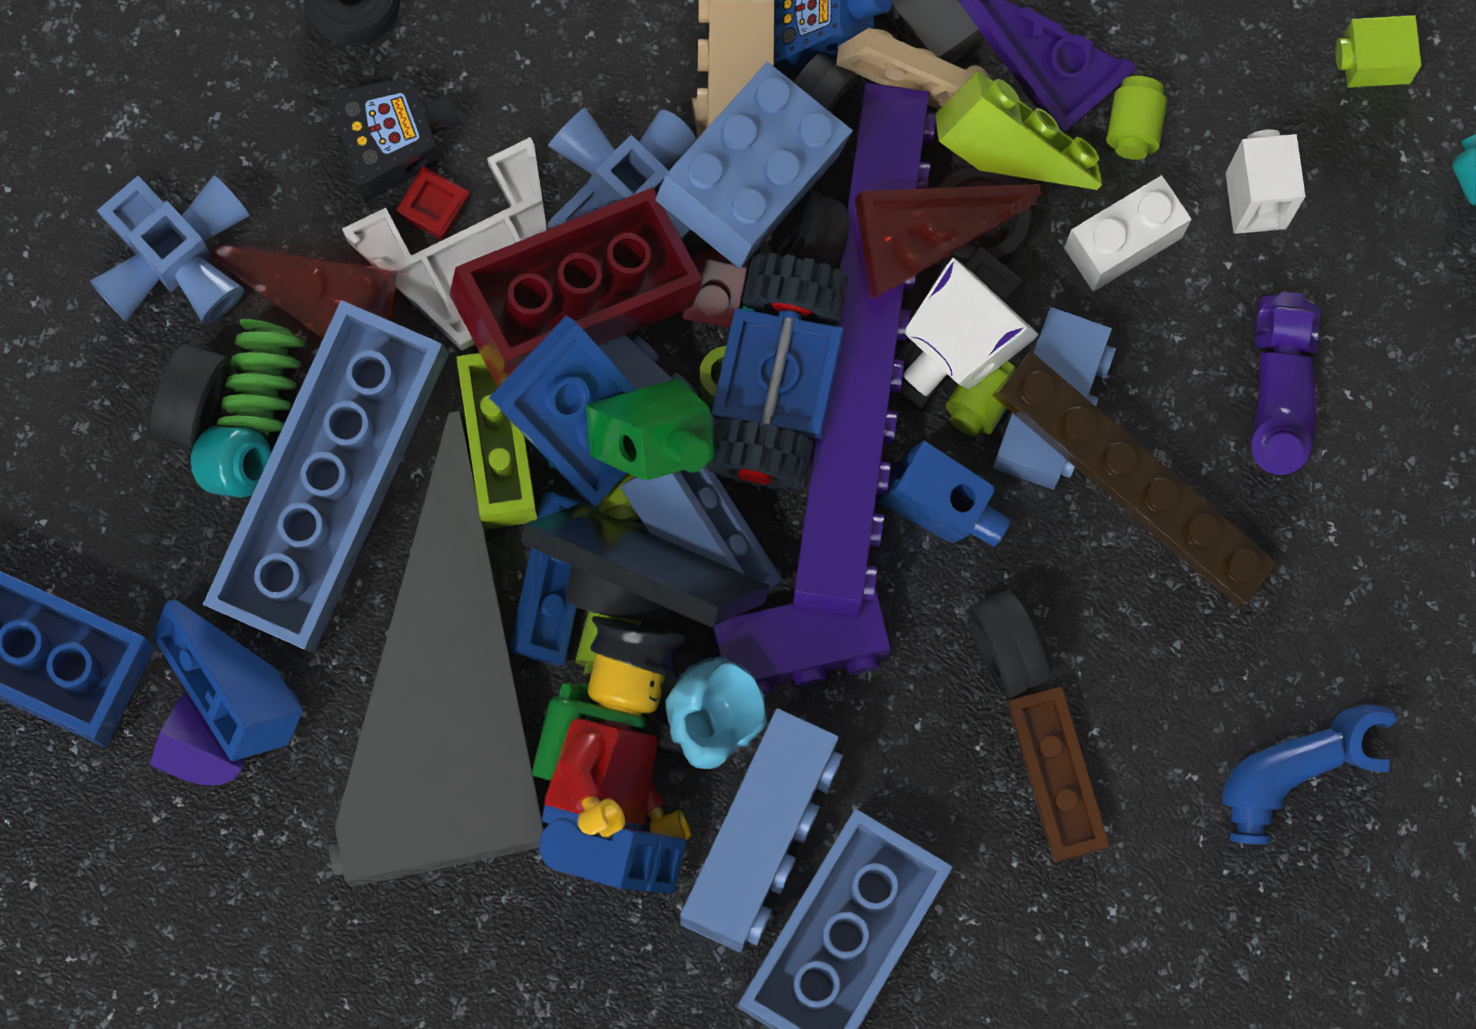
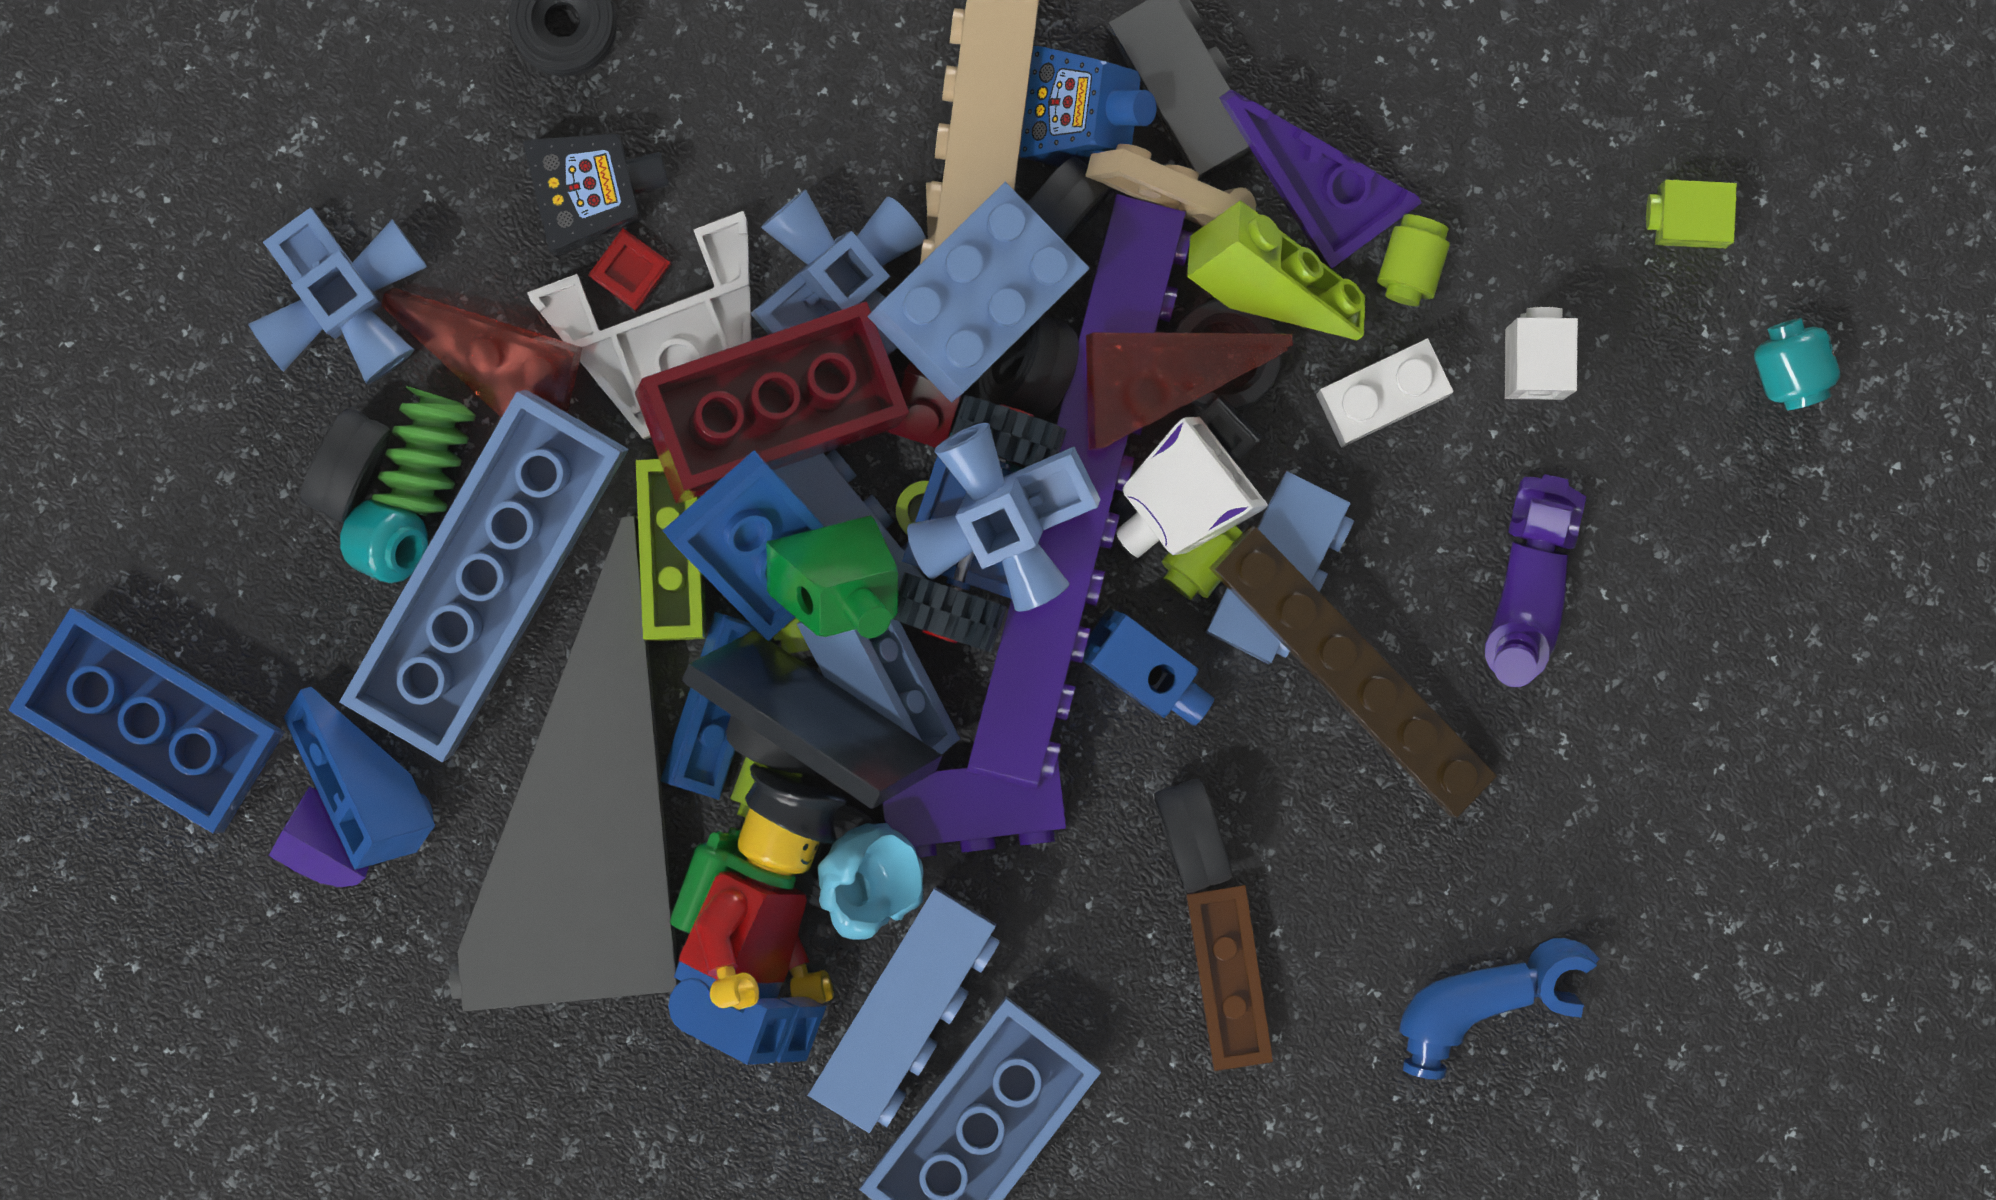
camera: 10 degrees right, 10 degrees up
(802, 352) = (1004, 515): none -> medium blue brick

